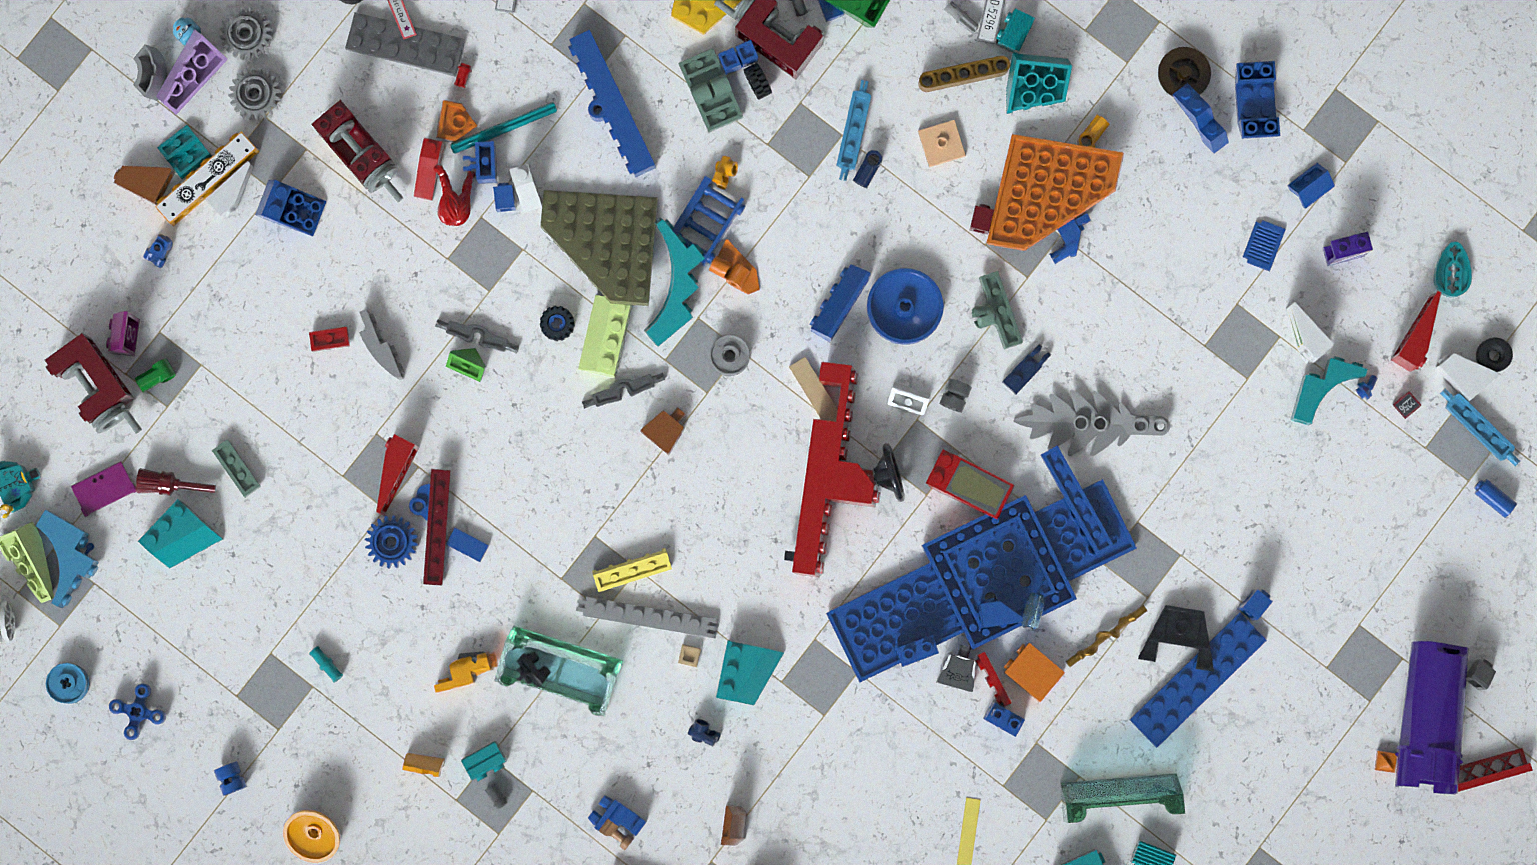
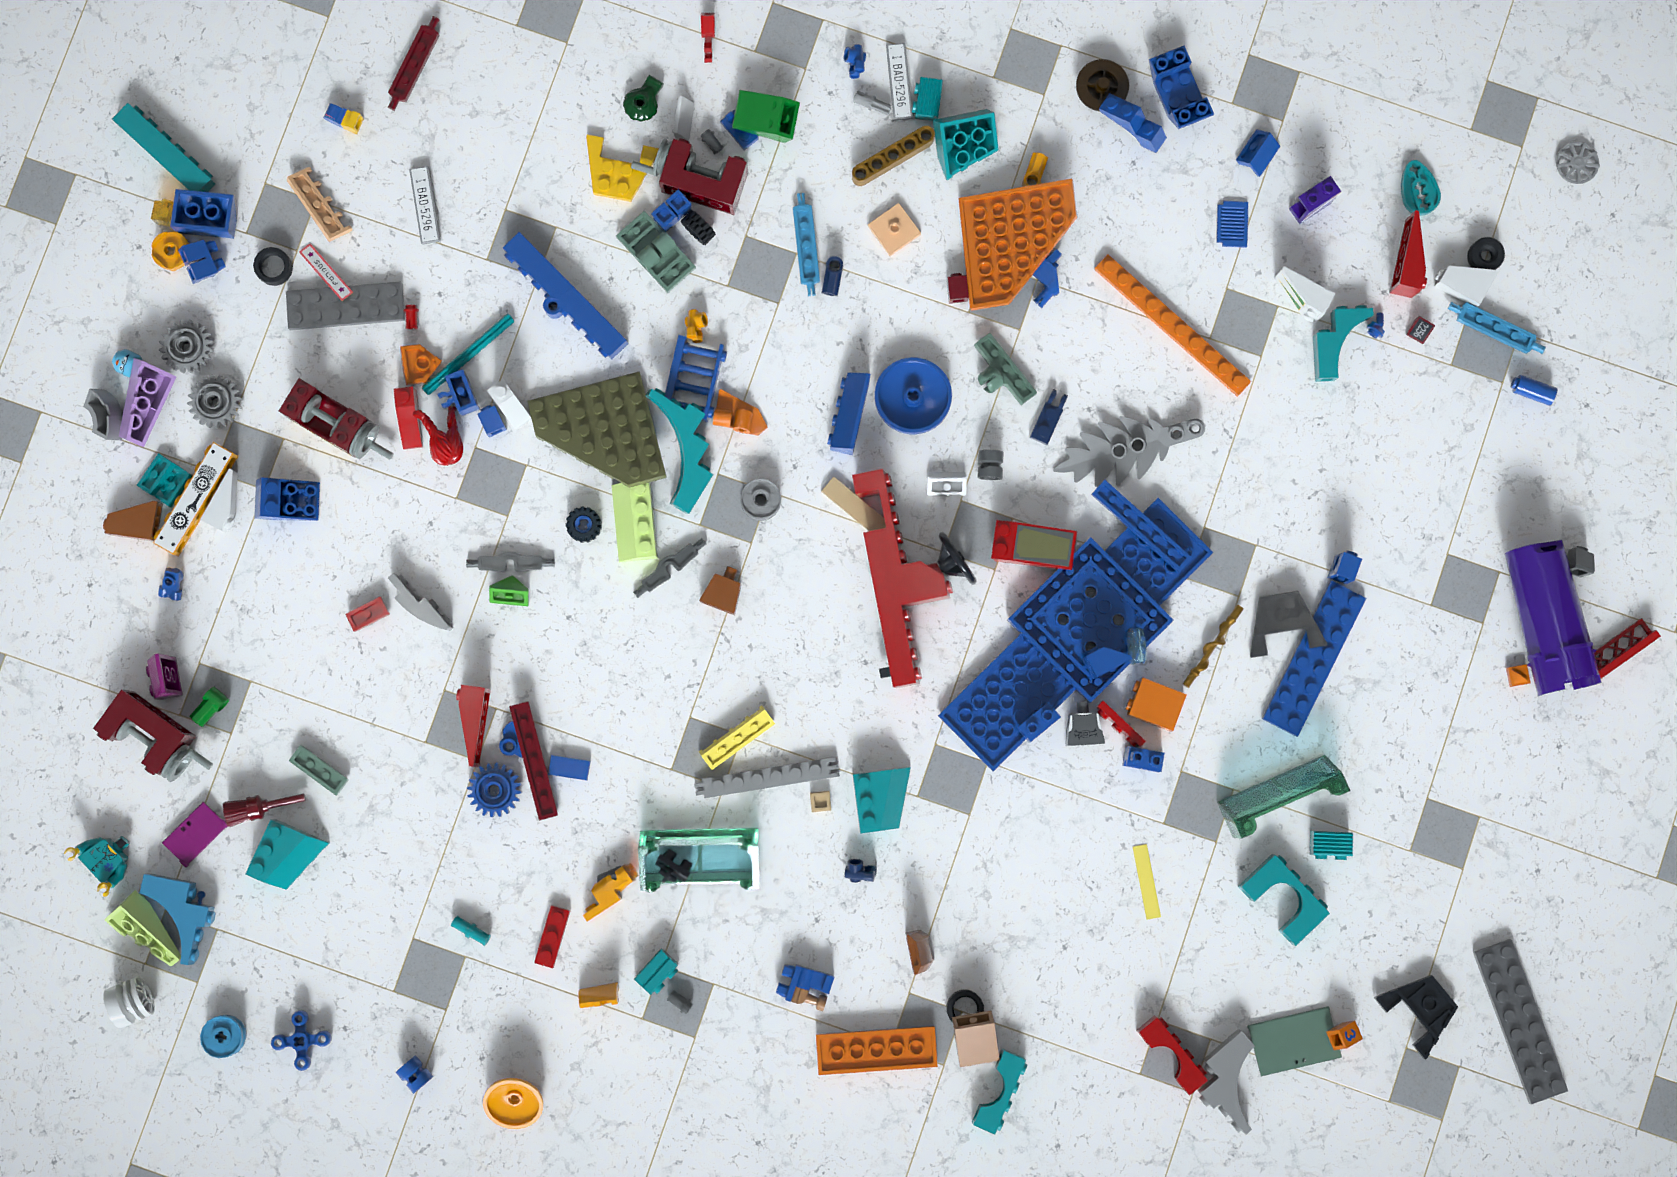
camera: 25 degrees left, 0 degrees up
(399, 695) = (552, 936): none -> red plate
(1173, 321) = (1172, 325): none -> orange plate

